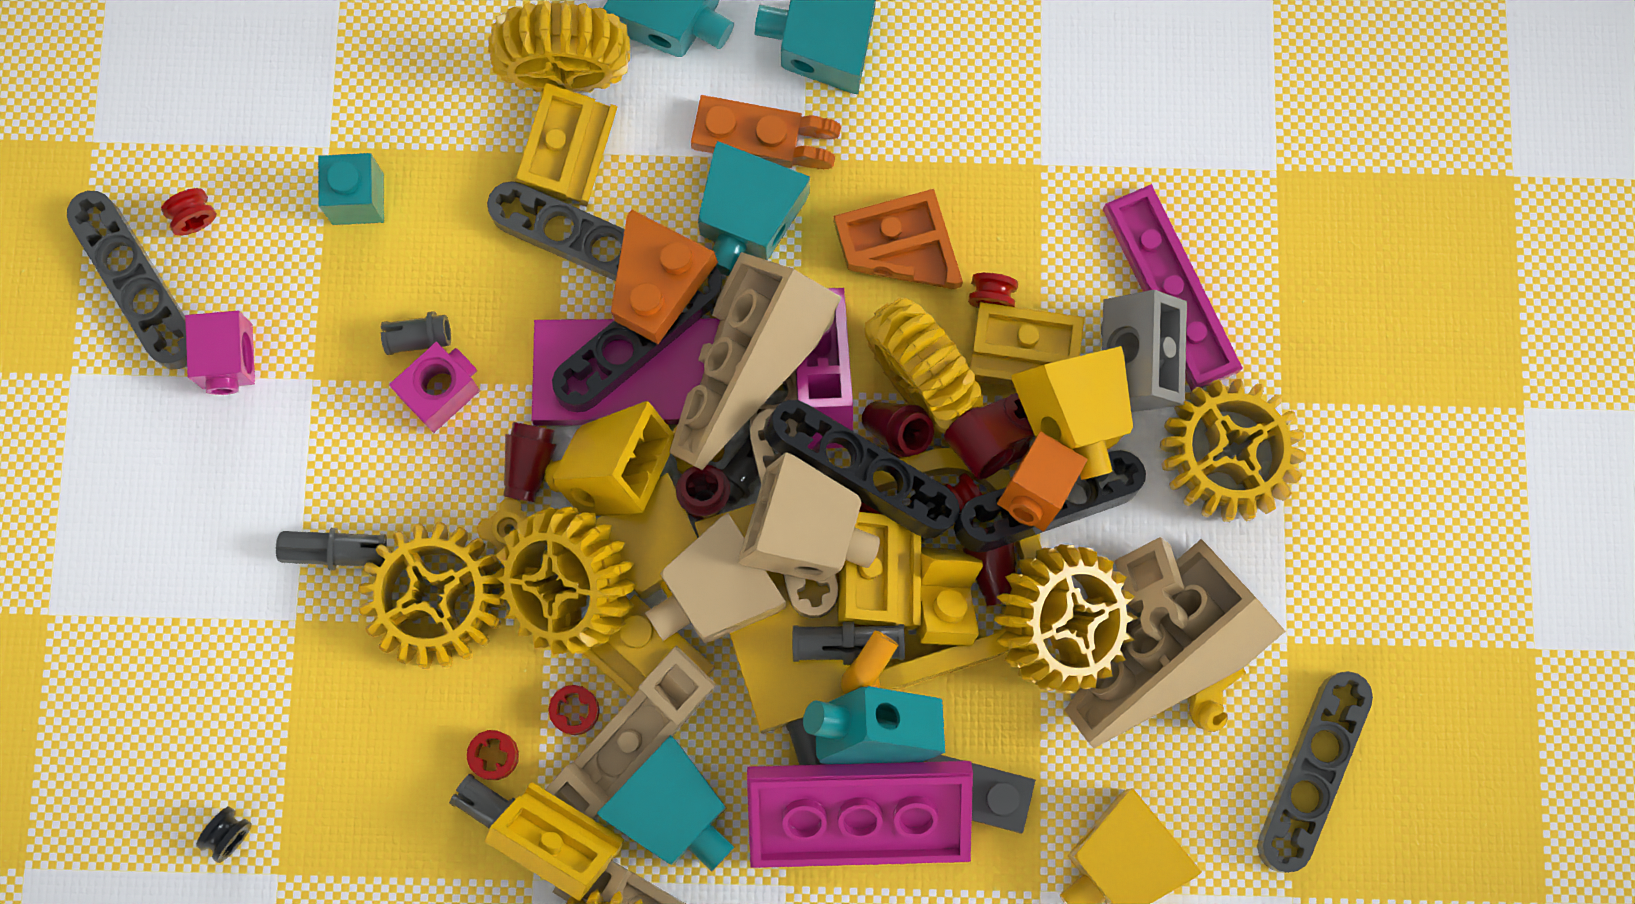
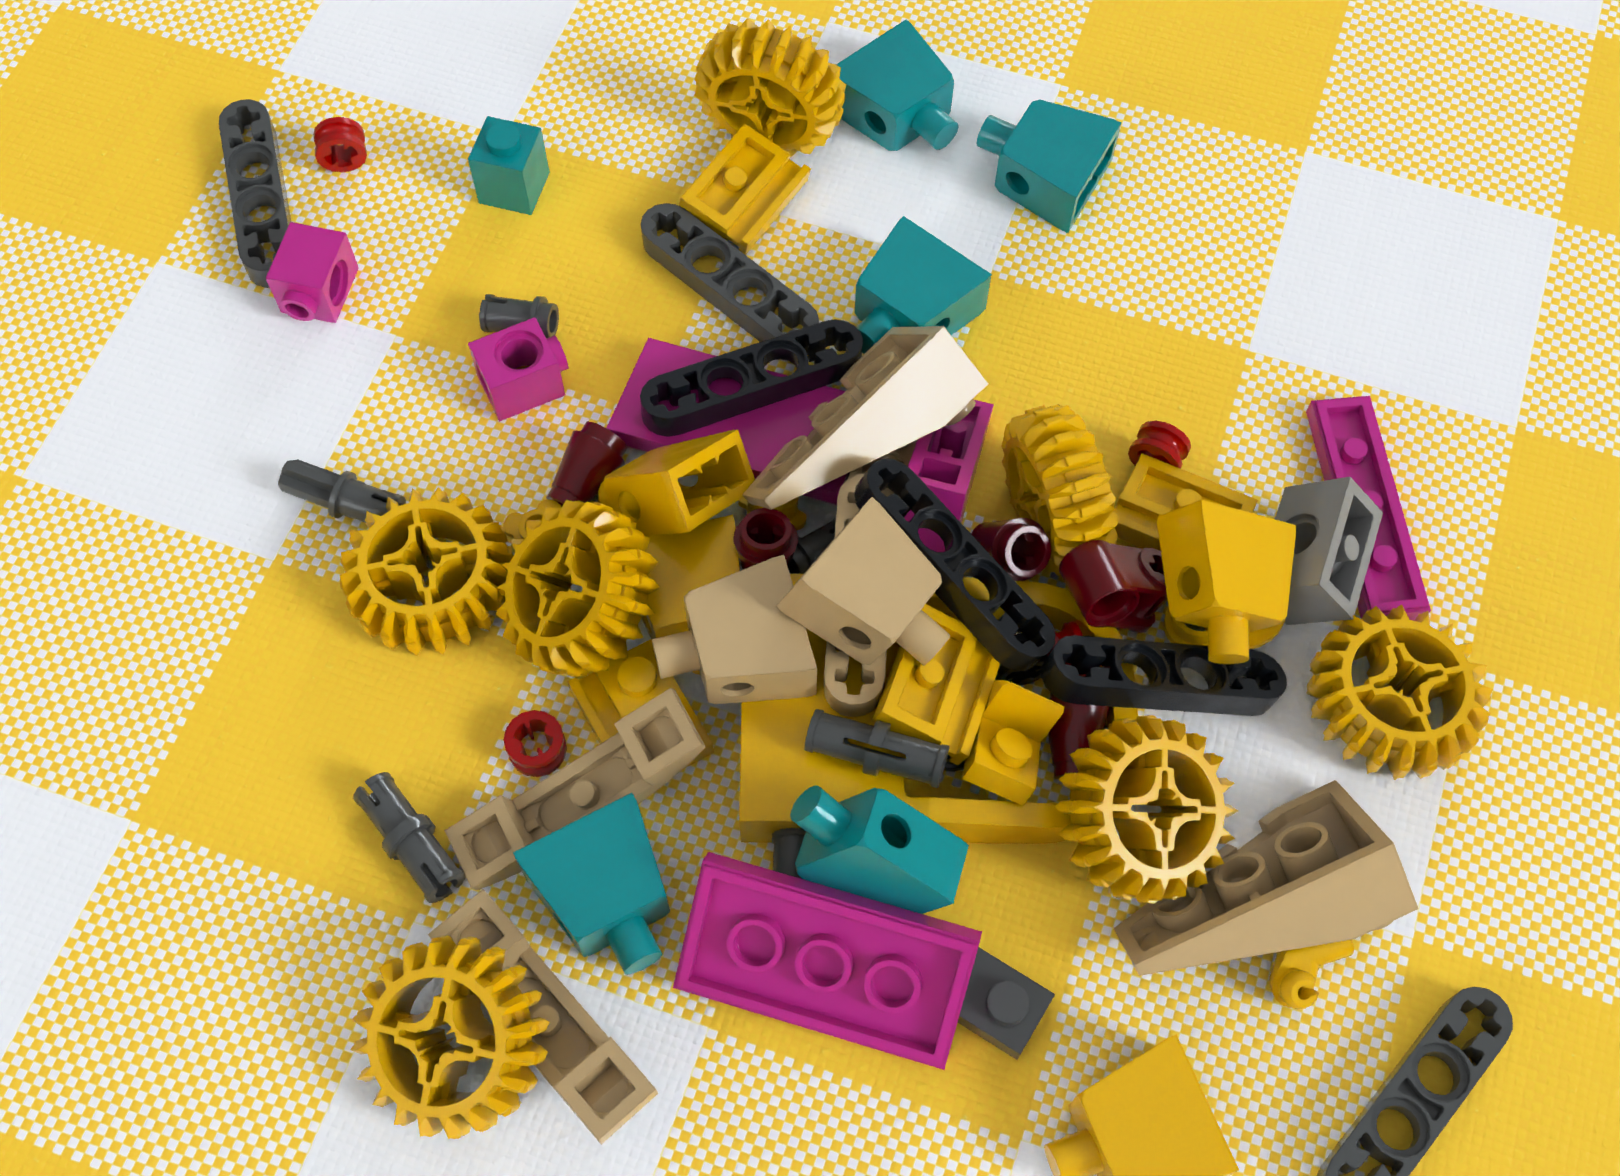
camera: 20 degrees right, 15 degrees down
(223, 834) = (89, 750): black bush -> none
(479, 765) = (422, 742): red bush -> none
(554, 841) = (451, 867): yellow plate -> none
(656, 276) = (793, 321): orange wing -> none
(763, 132) = (964, 232): orange hinge -> none
(869, 663) = (896, 765): light orange arm -> none
(900, 241) = (1070, 369): orange wing -> none
(1042, 482) = (1161, 637): orange brick -> none
(1153, 581) = (1266, 806): tan plate -> none

